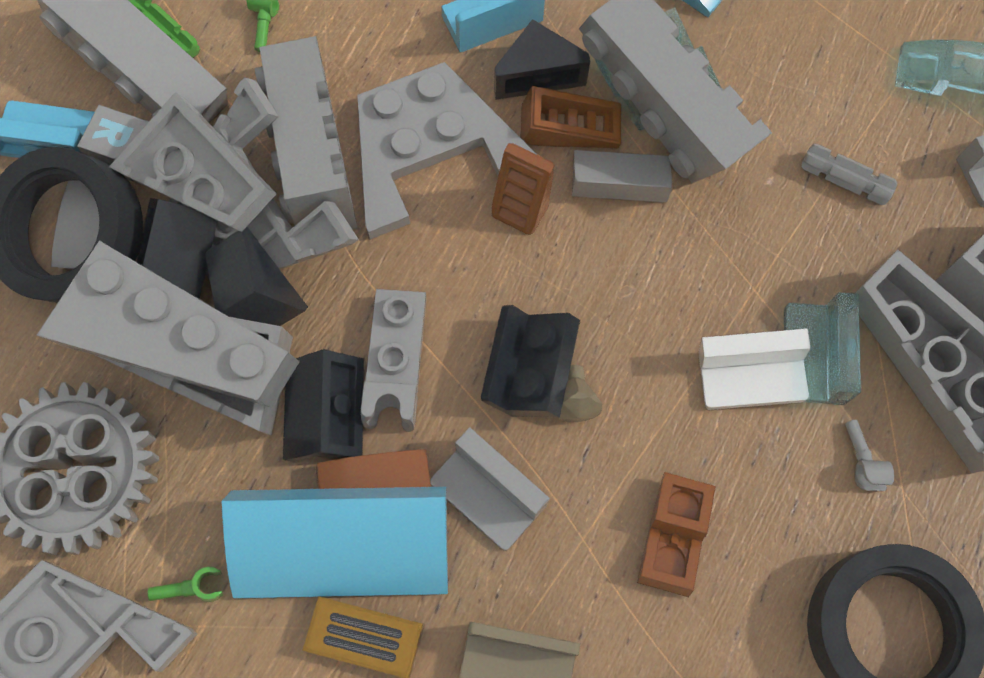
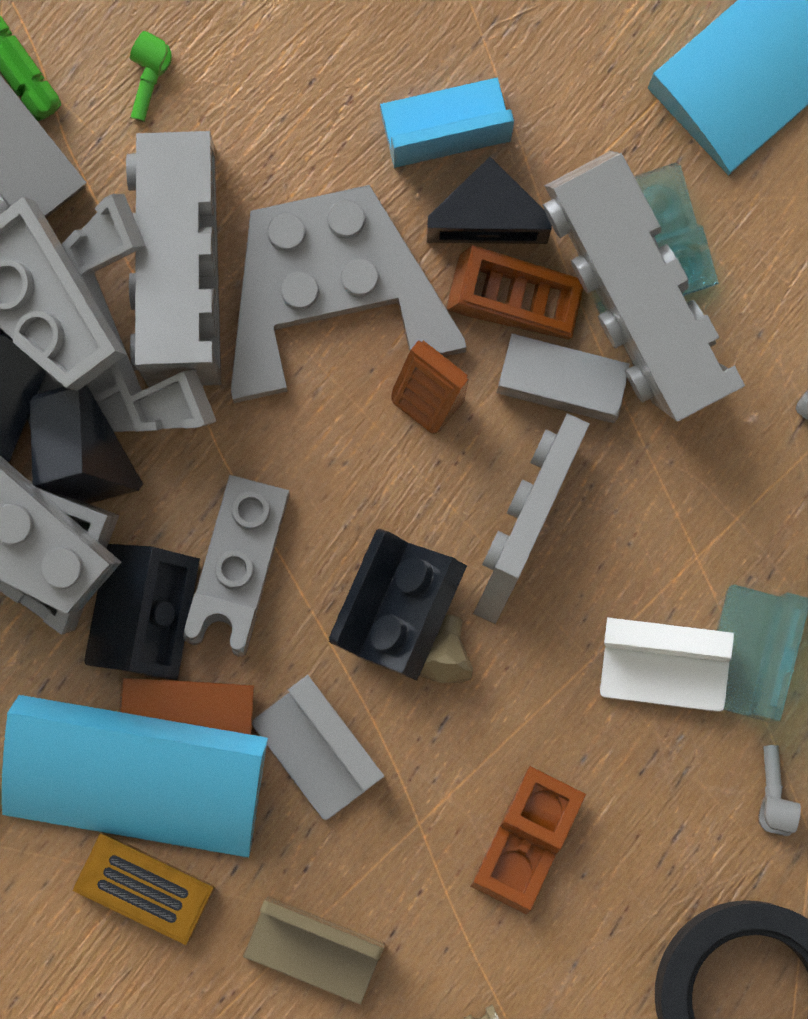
camera: 10 degrees right, 10 degrees up
(622, 266) = (531, 509): none -> light grey wing

